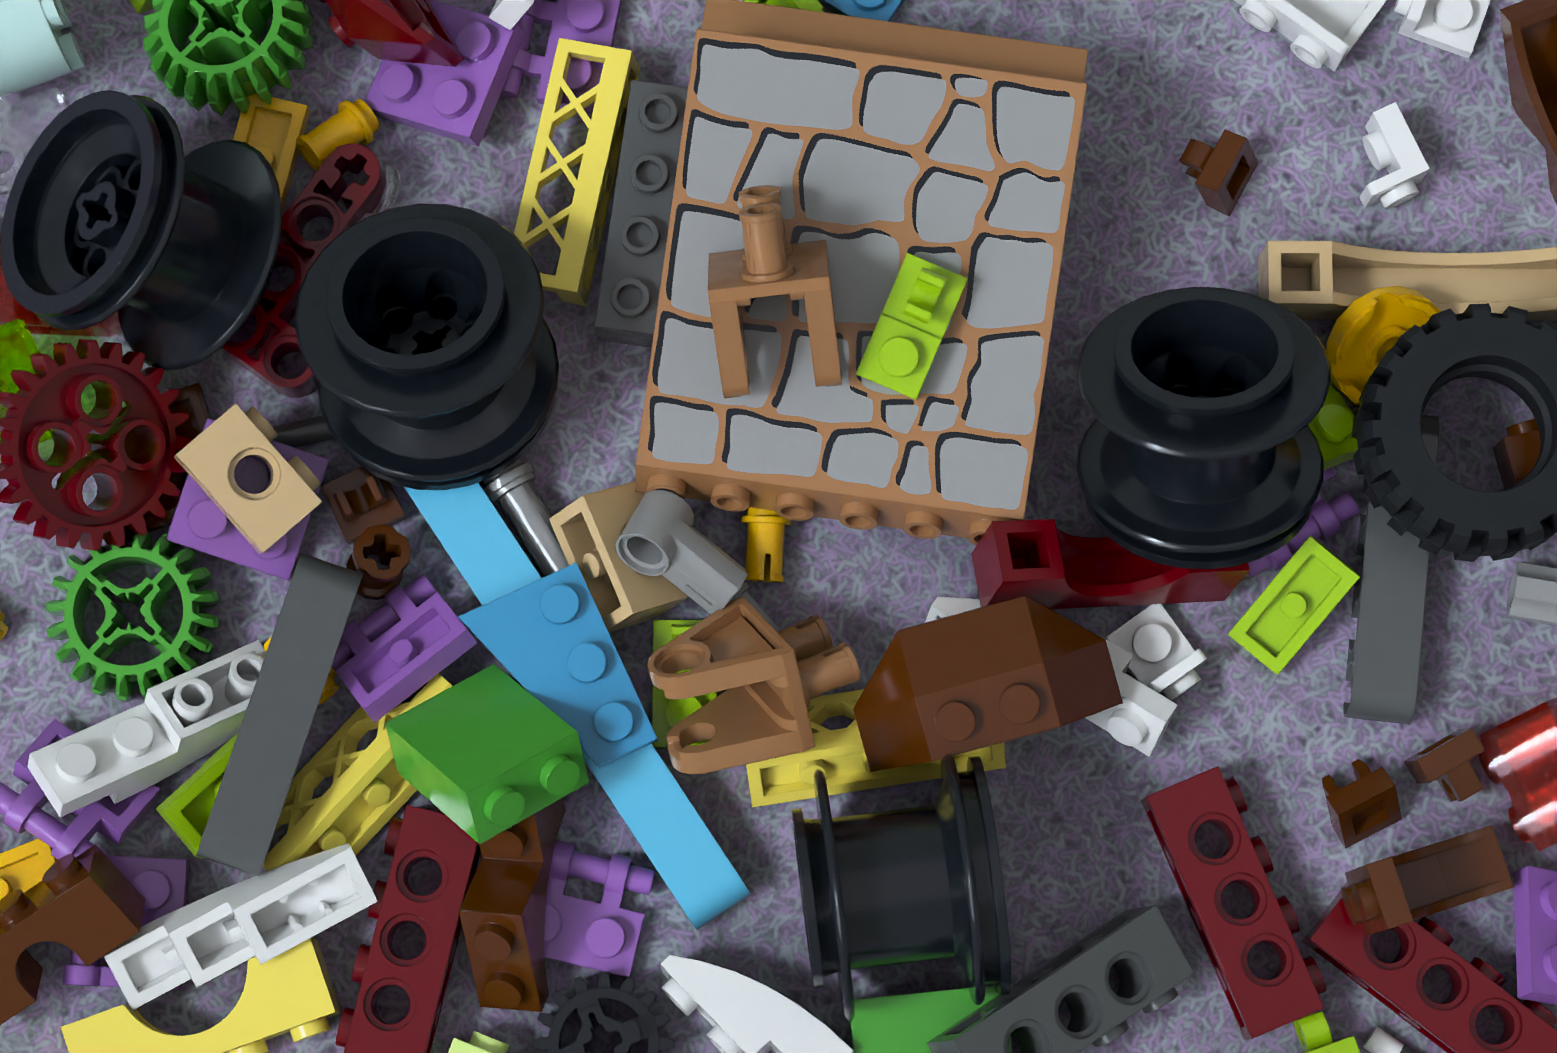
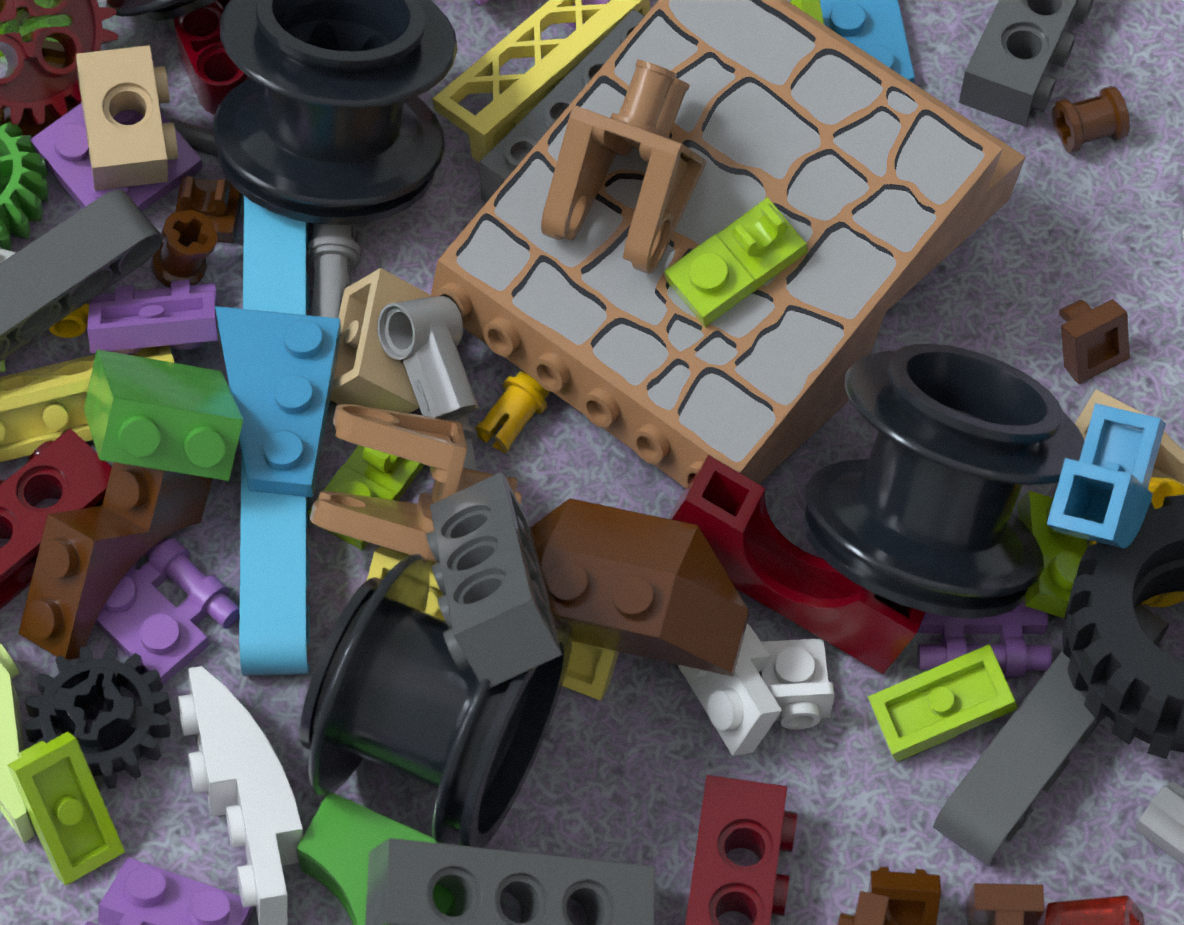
camera: 30 degrees right, 20 degrees down
(903, 772) = (491, 583): none -> dark grey brick
(1362, 371) = (1107, 489): none -> dark azure brick

